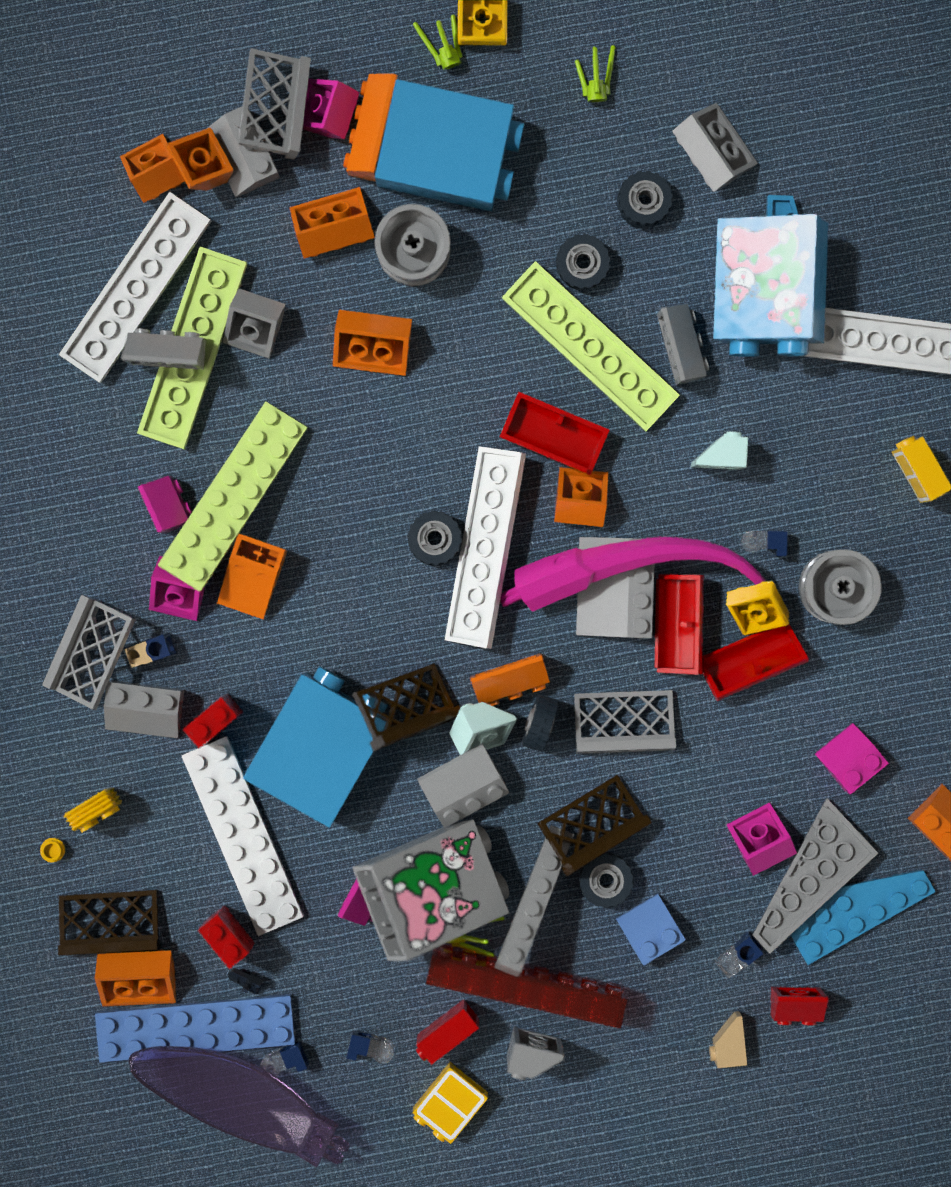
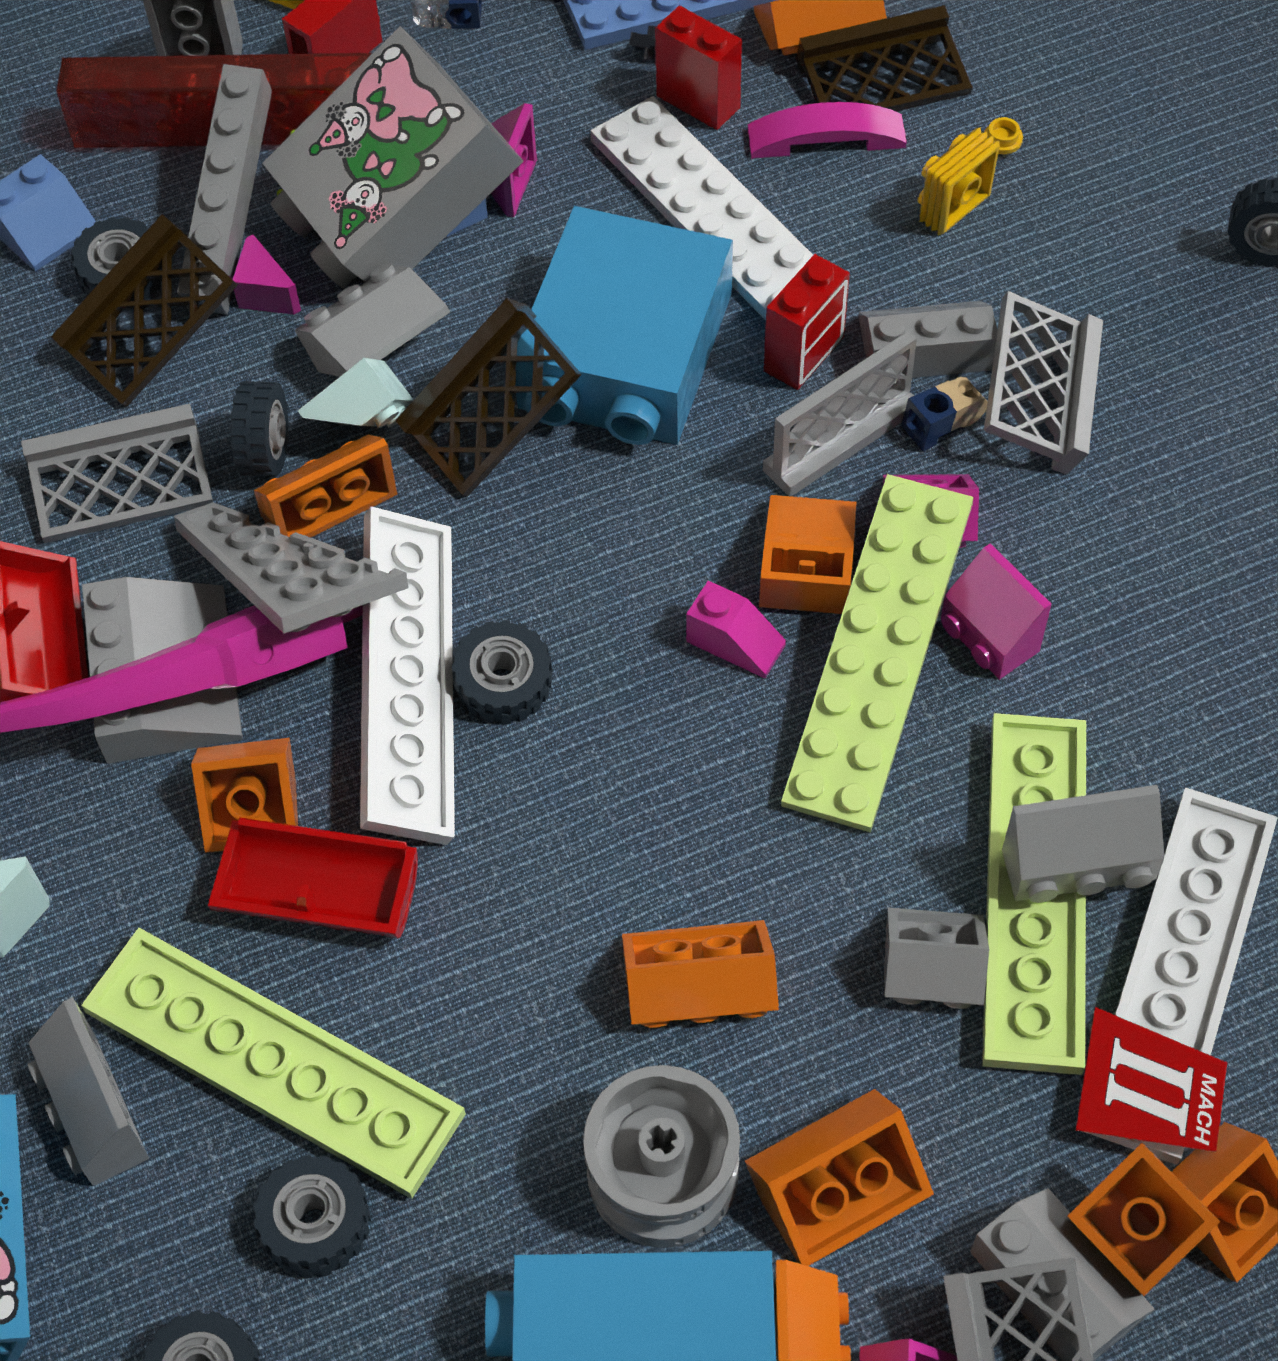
camera: 170 degrees right, 30 degrees down
(158, 883) = (826, 123): none -> dark pink slope
(173, 227) = (1149, 1087): none -> red sticker
(211, 653) = (859, 410): none -> light grey fence
(305, 533) = (733, 630): none -> dark pink slope
(523, 842) = (263, 282): none -> dark pink slope
(540, 613) = (284, 576): none -> light grey wing

